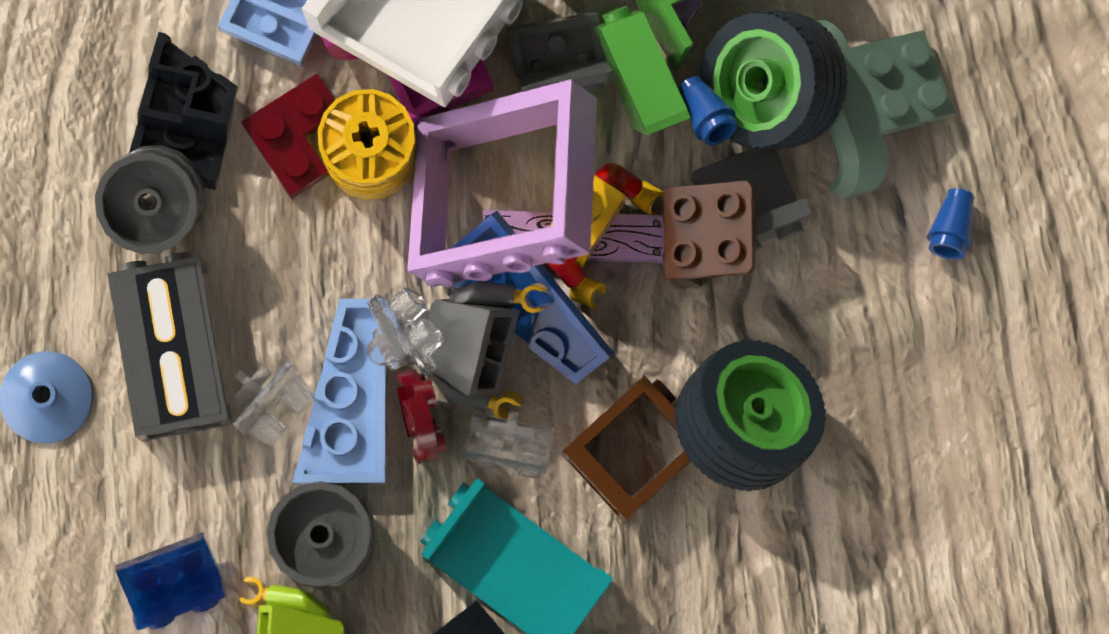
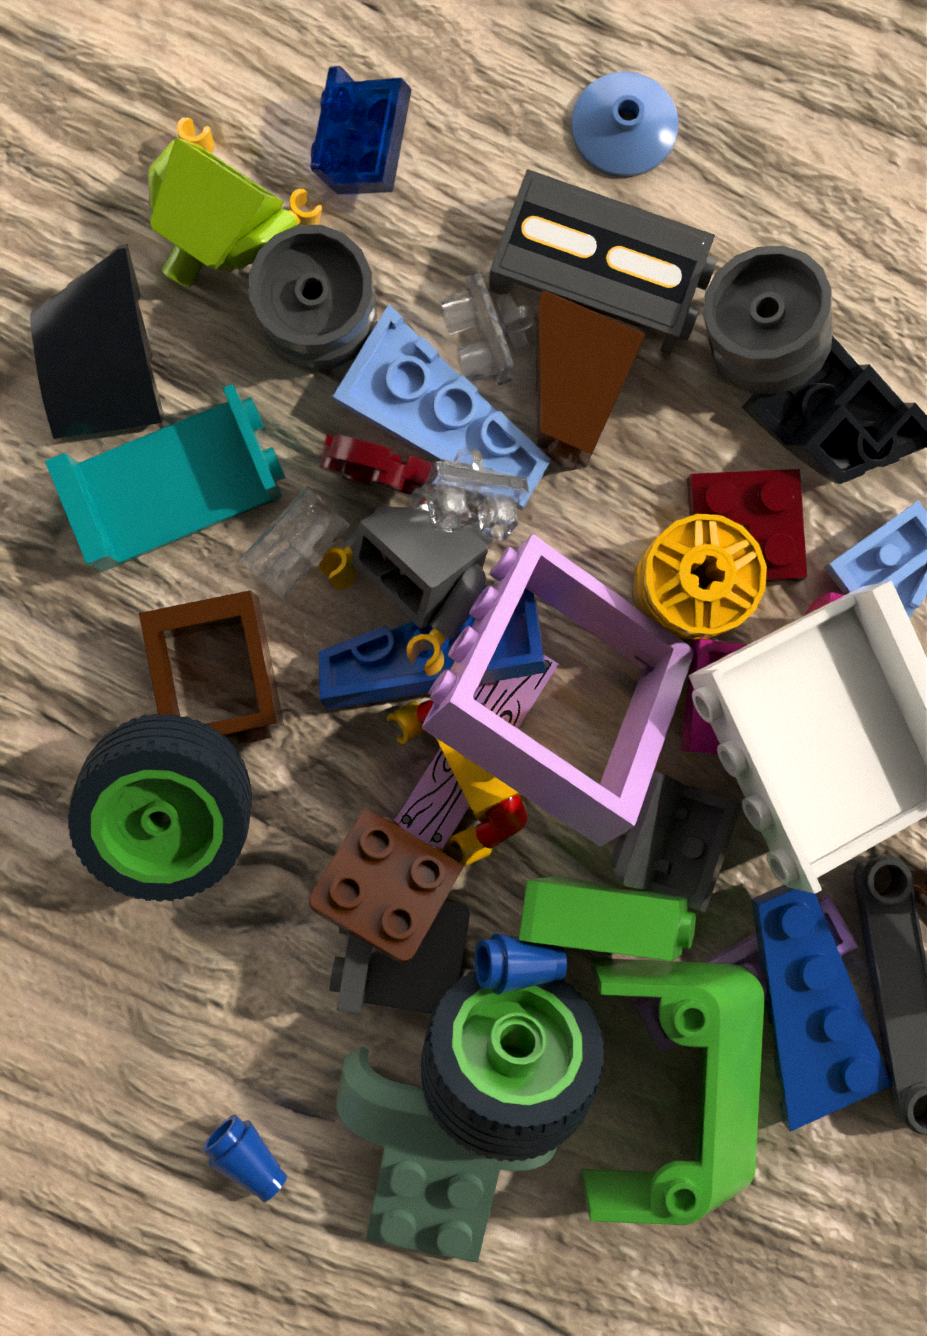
camera: 120 degrees right, 5 degrees up
(267, 314) = (578, 376): none -> reddish brown slope

